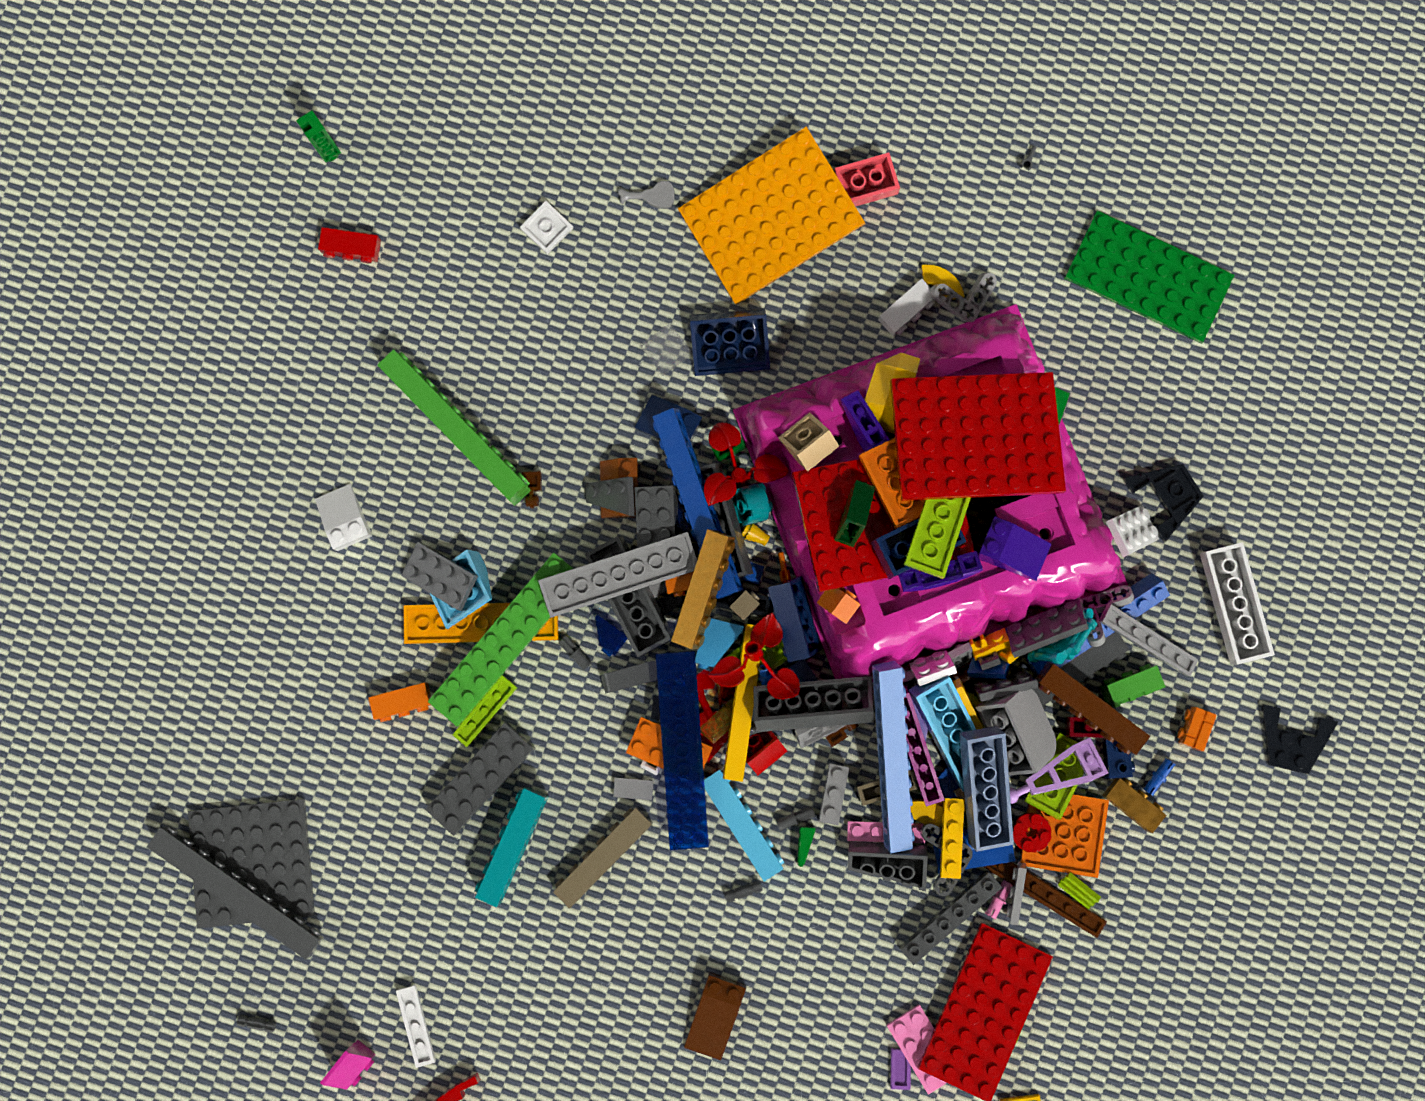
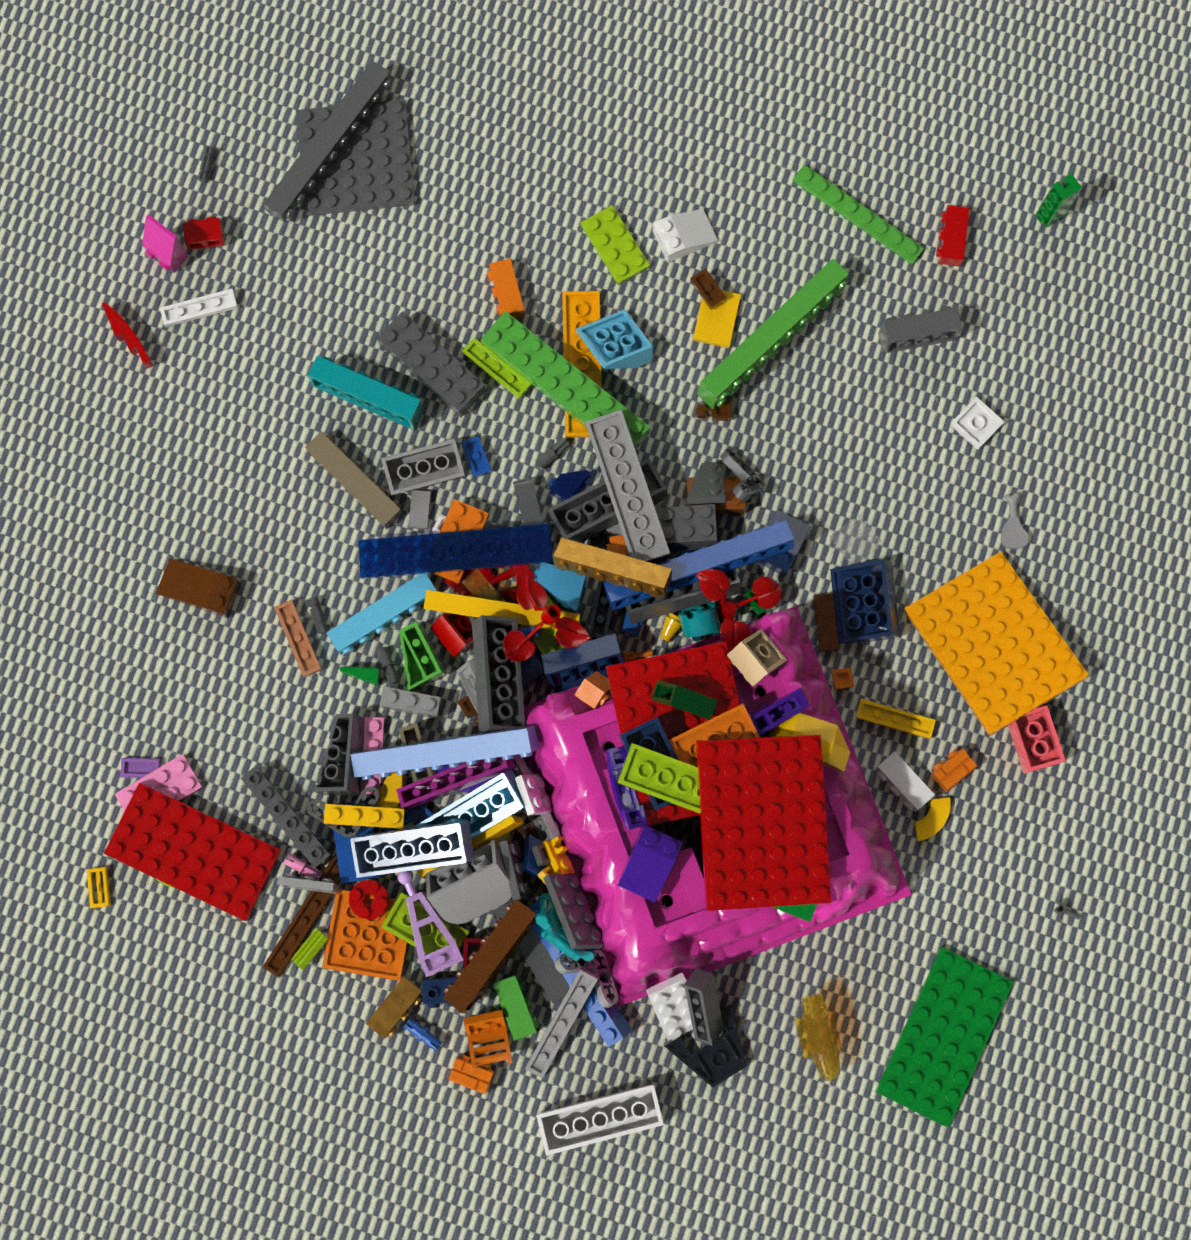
camera: 85 degrees right, 5 degrees down
(324, 341) = (858, 214): none -> bright green plate
(334, 1023) = (203, 233): none -> red brick
(353, 589) = (615, 245): none -> lime plate
(403, 493) = (708, 289): none -> reddish brown plate
(432, 485) = (717, 325): none -> yellow tile
(439, 576) = (627, 322): dark grey plate -> none
(451, 280) = (920, 329): none -> dark grey brick
(579, 731) = (476, 457): none -> blue plate
(590, 785) = (423, 466): none -> light grey slope
(606, 451) = (750, 482): none -> dark grey beam
(745, 604) = (597, 611): dark tan brick -> none
(749, 381) = (826, 622): none -> reddish brown tile
(767, 911) = (297, 638): none -> nougat plate
(787, 785) = (420, 657): none -> bright green wedge
(806, 365) = (842, 678): none -> orange plate
(845, 315) = (895, 719): none -> yellow plate
(895, 260) = (953, 770): none -> orange brick
(967, 303) = (911, 845): light grey beam -> none
(1132, 502) = (704, 1006): none -> dark grey brick
(1154, 716) = (485, 1029): none -> orange plate
(1155, 393) = (819, 1036): none -> clear yellow plate
(1292, 749) = (449, 1176): black wing -> none

